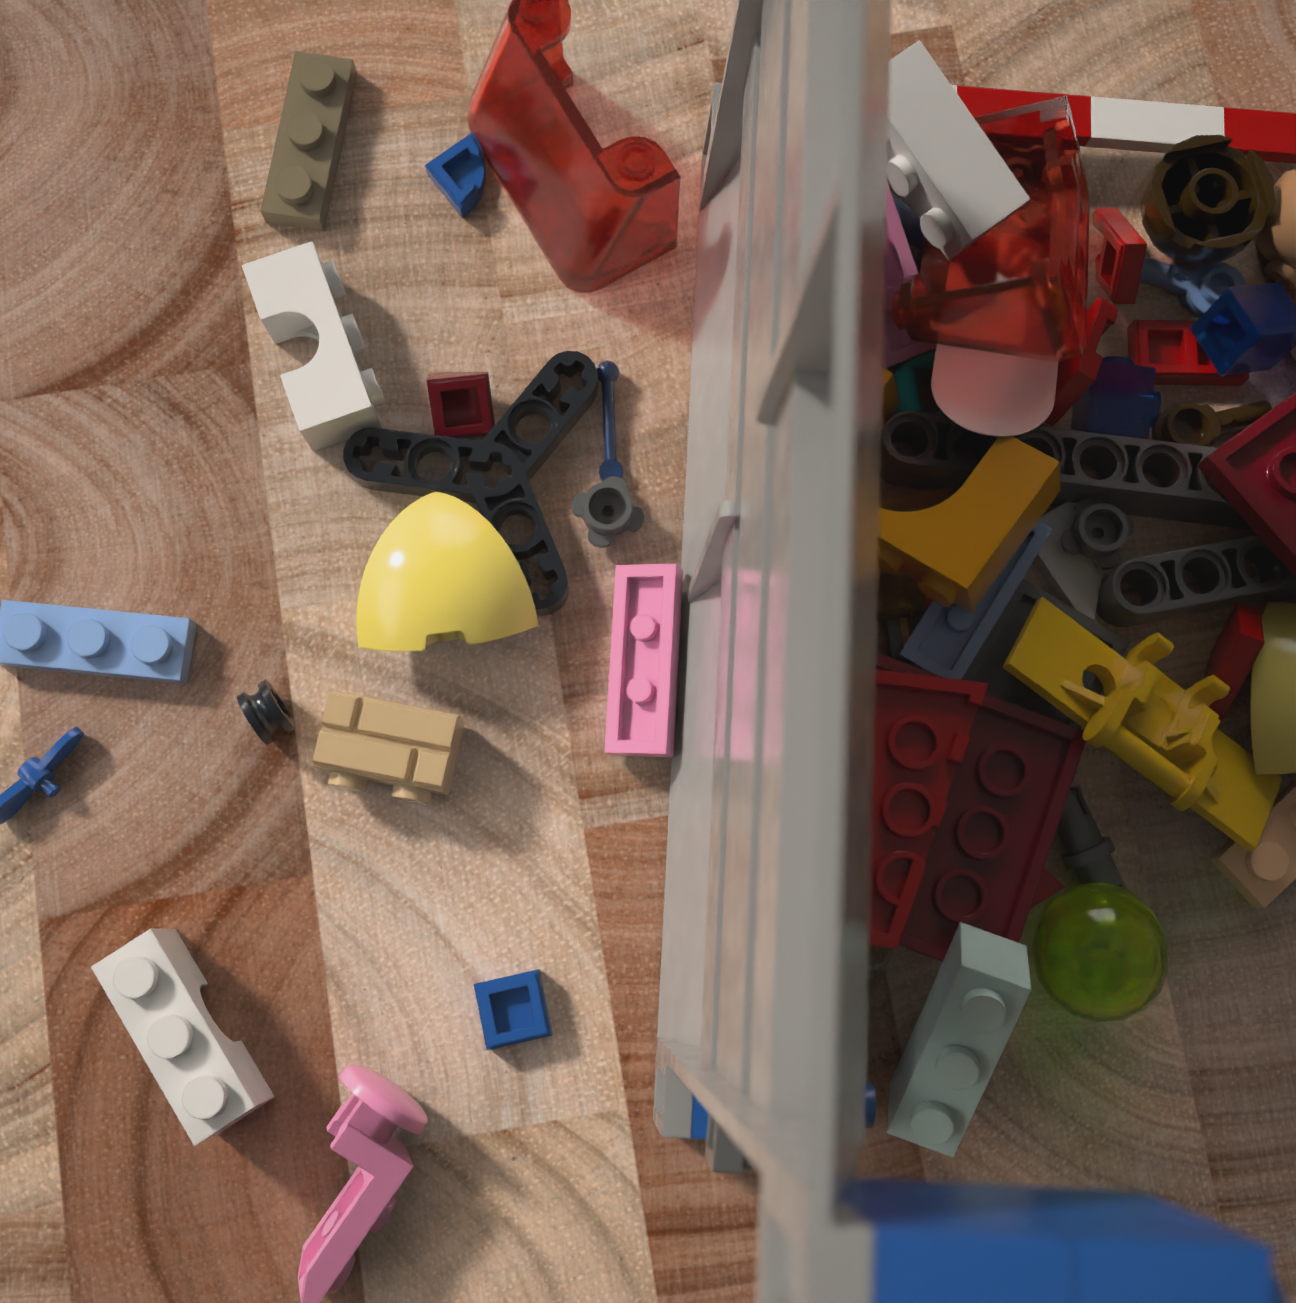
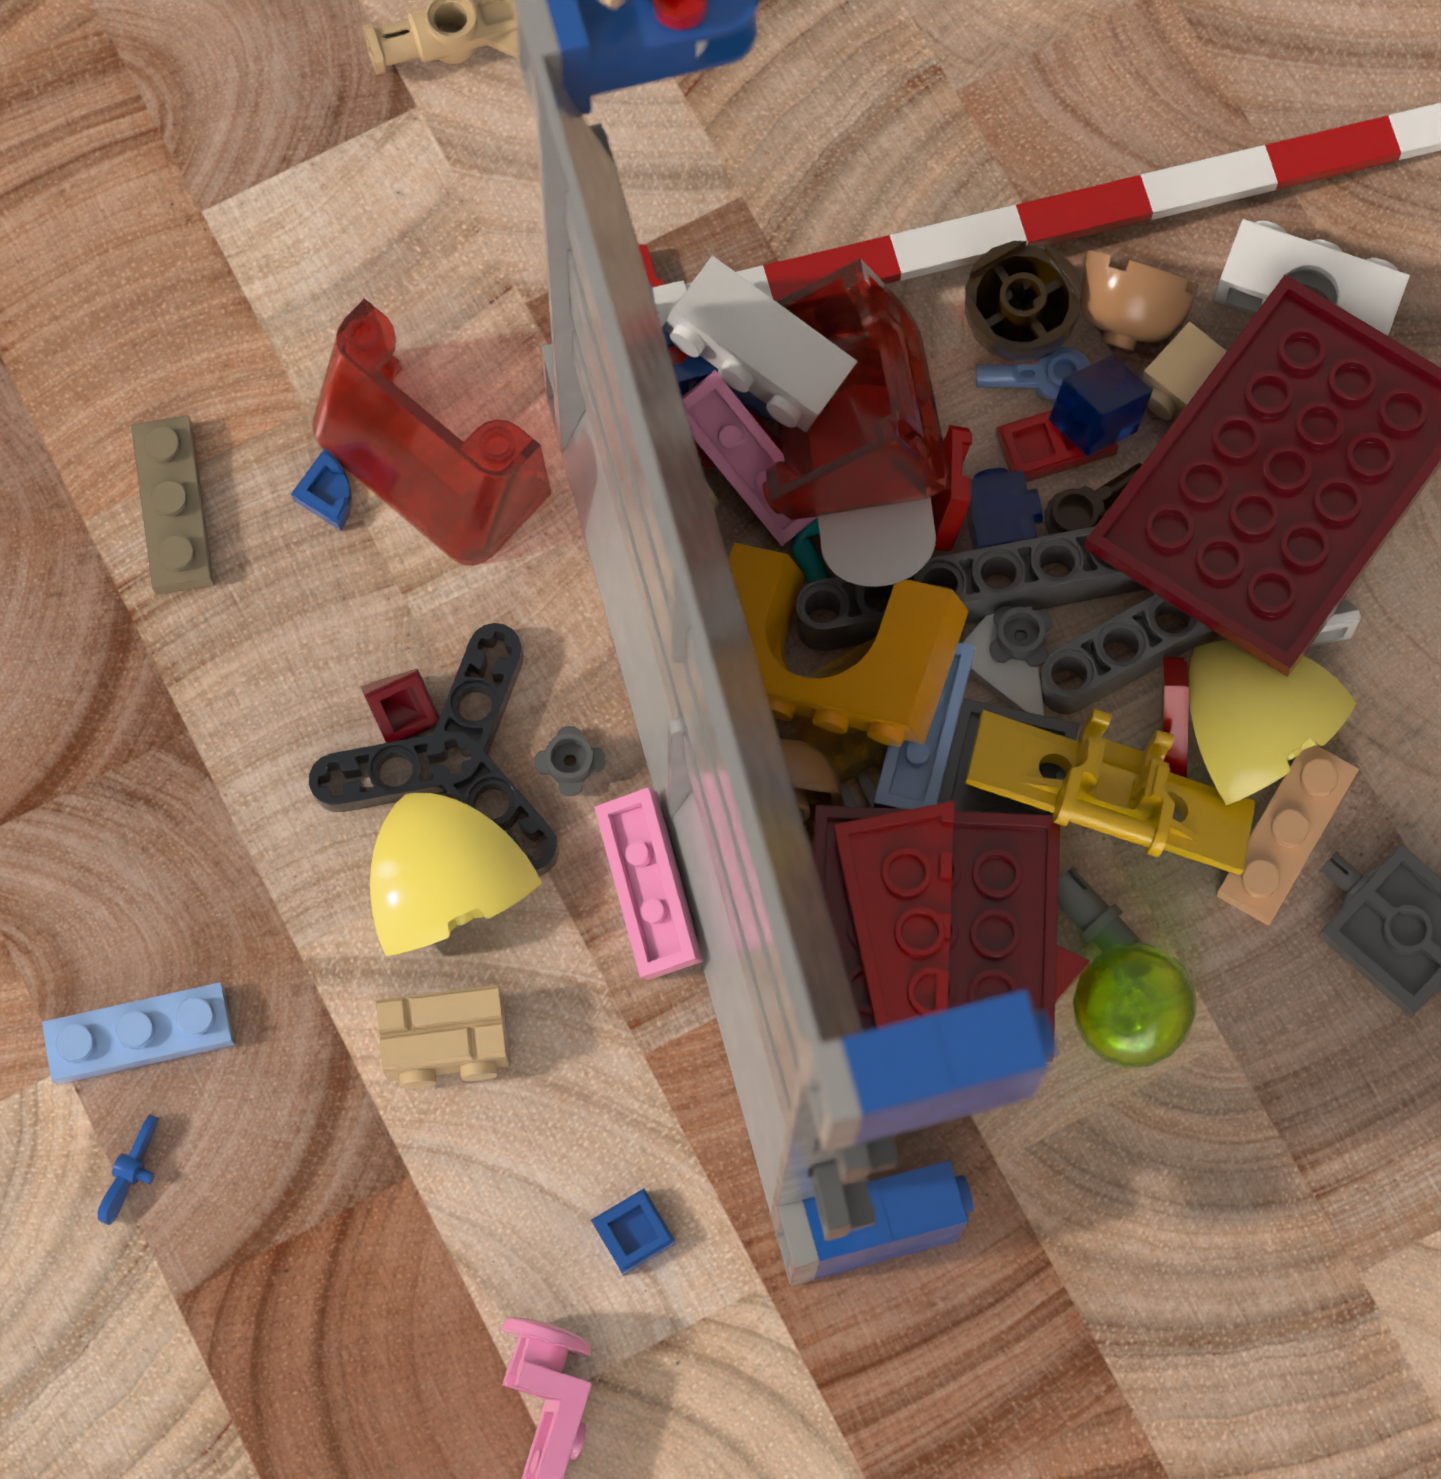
camera: 10 degrees left, 5 degrees down
(161, 1005) = (348, 1343): white arch -> none
(266, 712) = (321, 1042): black bush -> none
(298, 299) = (219, 656): white arch -> none
(607, 374) = (528, 634): dark blue hinge -> none
(958, 1039) = (1028, 1148): light aqua brick -> none
(1121, 256) = (962, 373): red tile -> none

